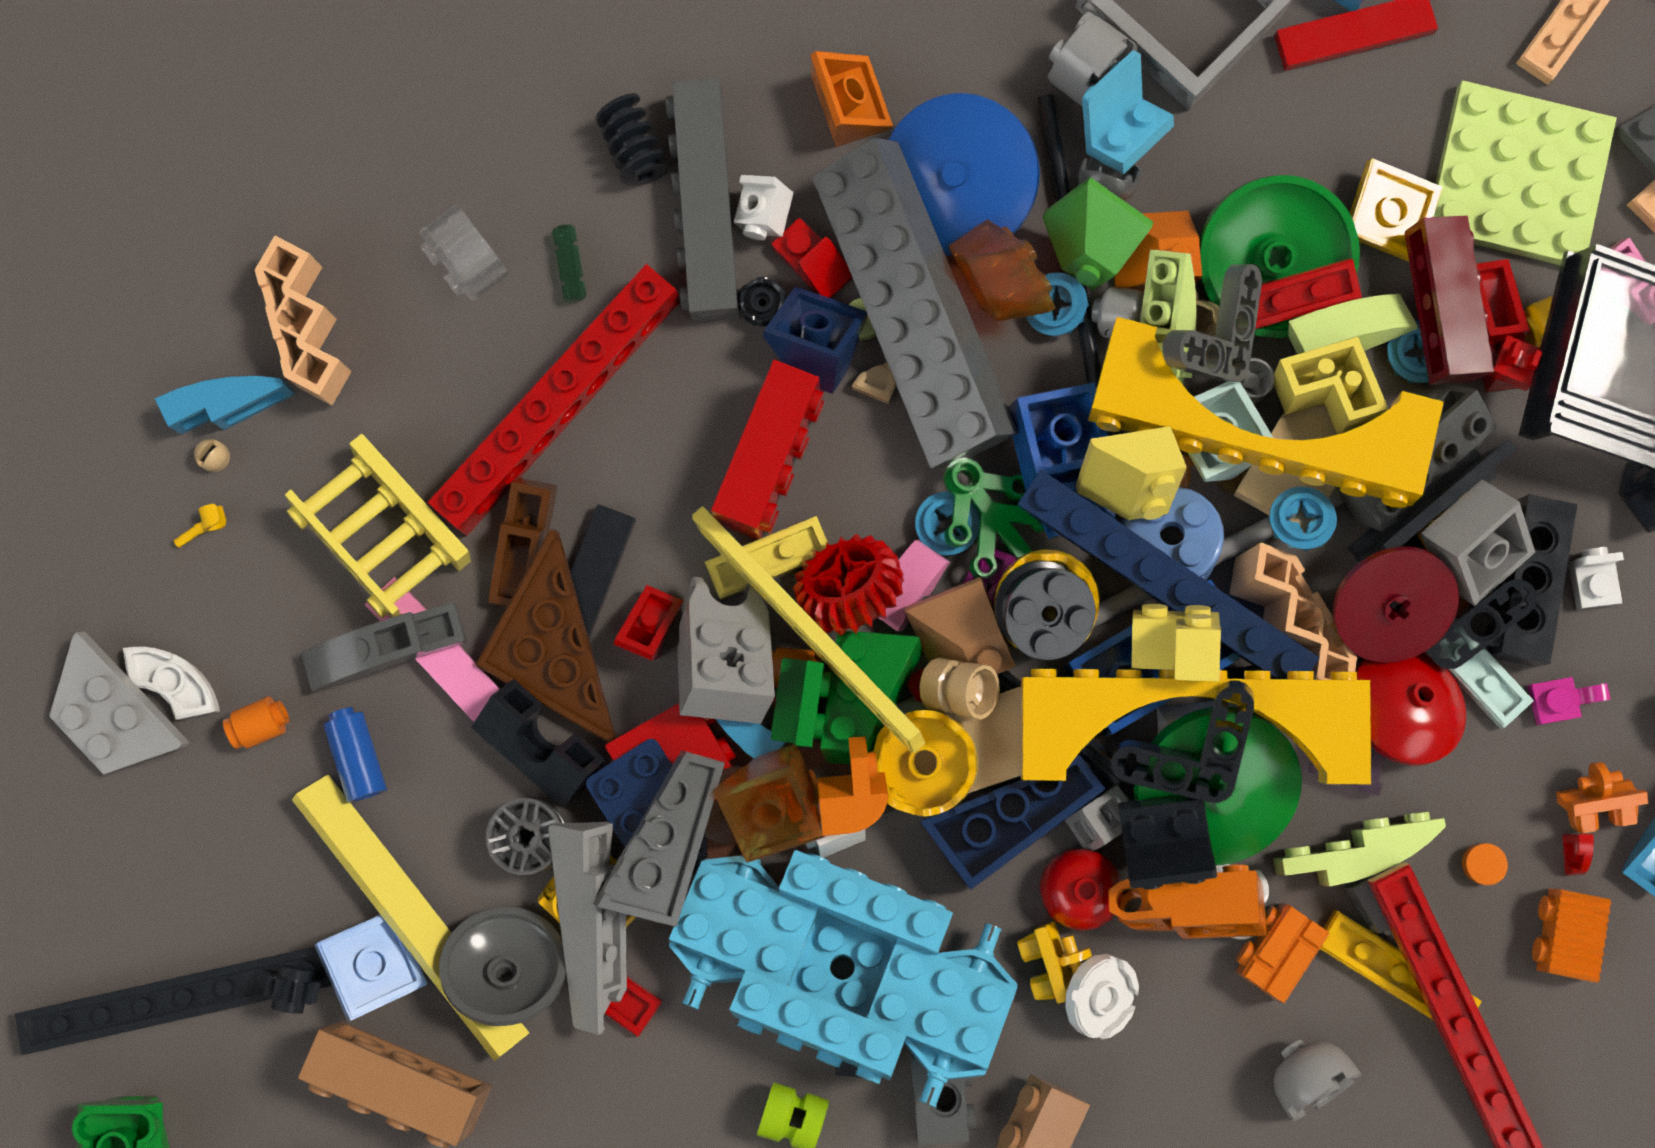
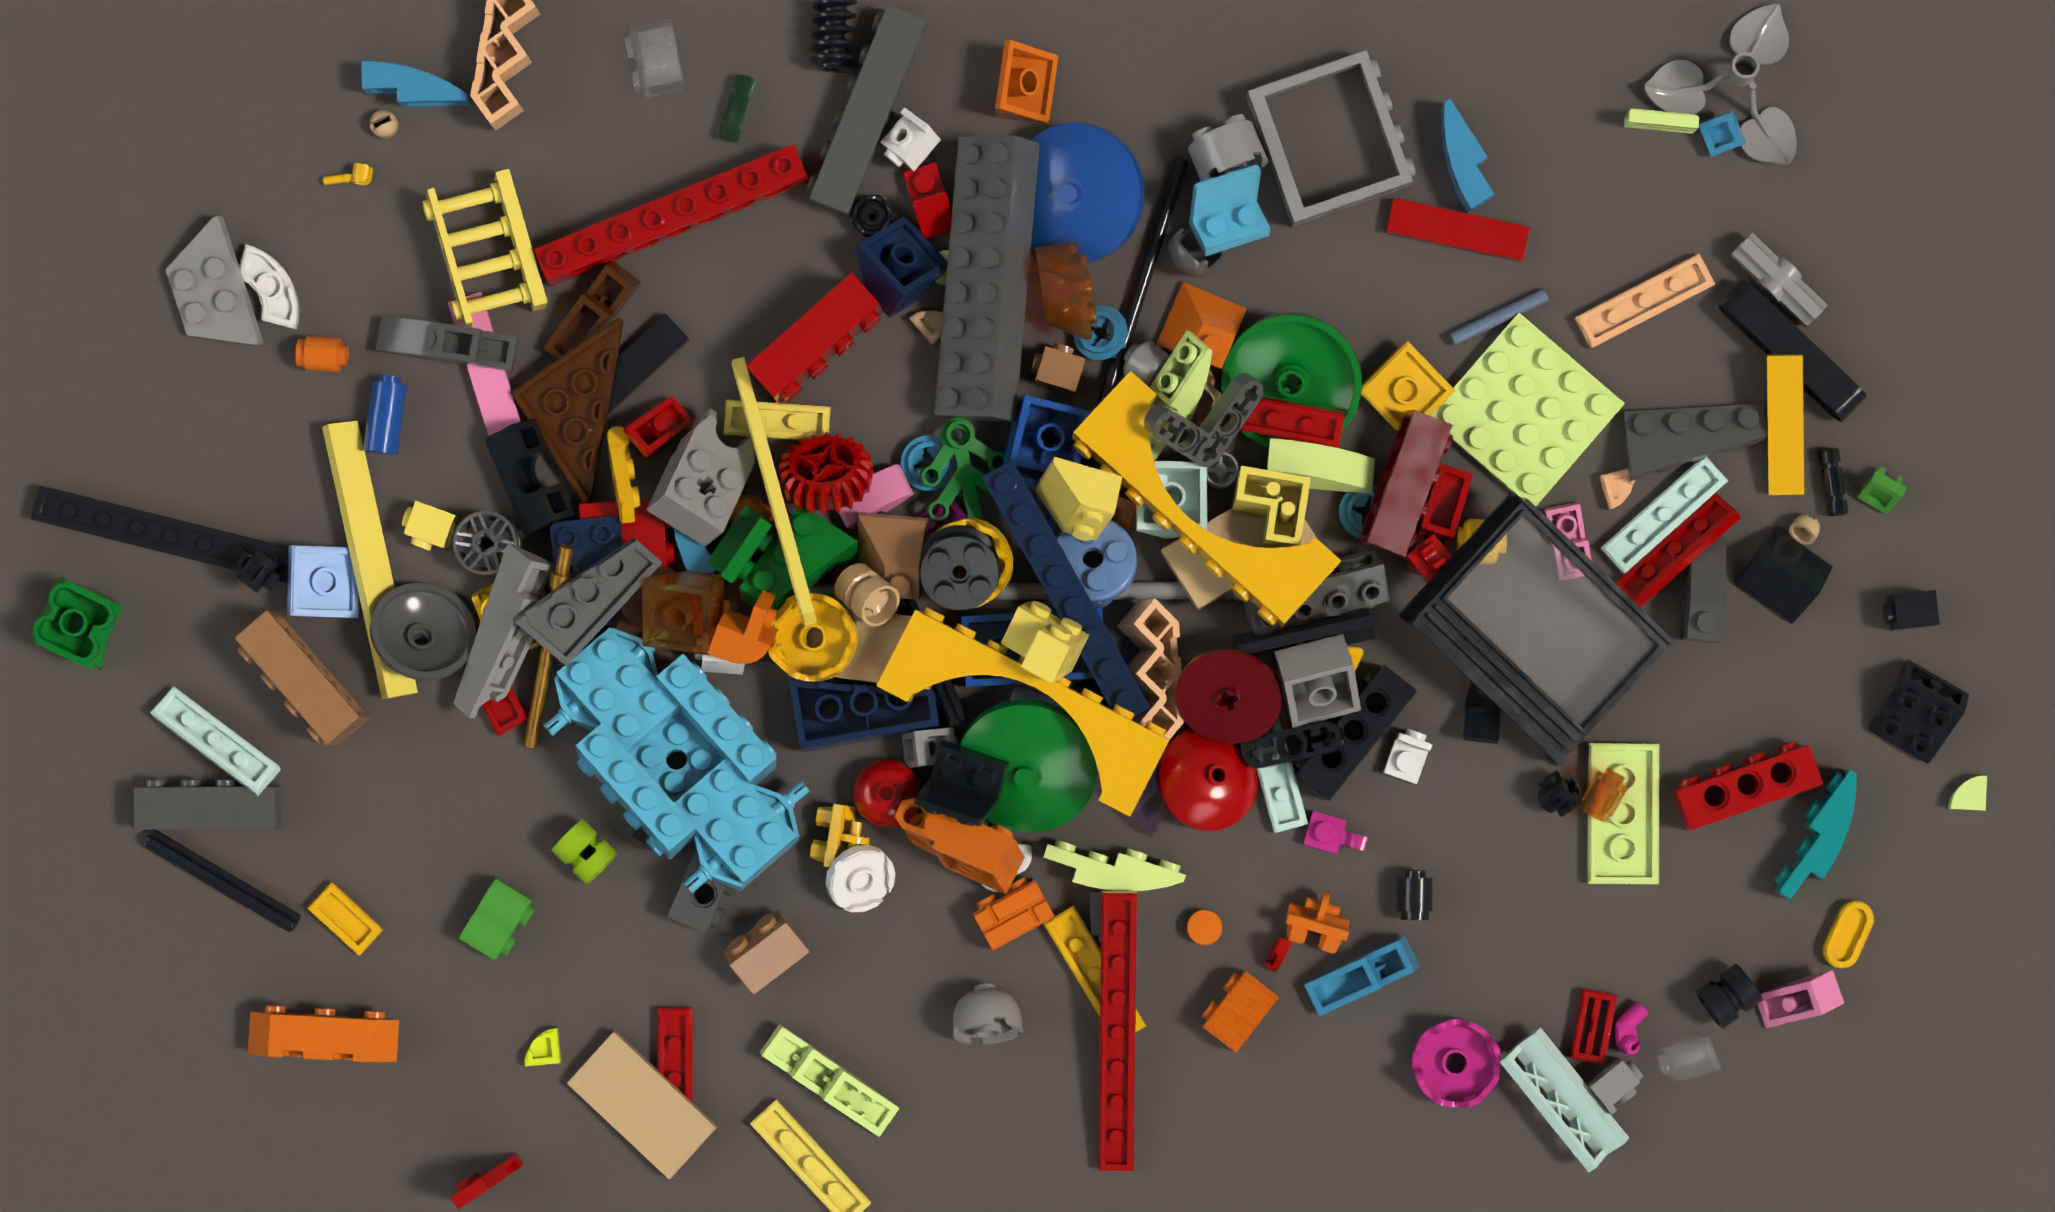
camera: 25 degrees right, 5 degrees up
(456, 848) = (429, 526): none -> light yellow brick
(621, 835) = (558, 578): none -> pearl gold bar
(635, 691) = (622, 472): none -> yellow hinge
(1032, 361) = (1058, 368): none -> medium nougat brick
(1094, 232) = (1153, 294): bright green slope -> none
(1208, 762) = (1021, 740): black beam -> none
(1314, 506) = (1212, 591): dark azure gear -> none
(1442, 96) = (1498, 317): none -> sand blue bar

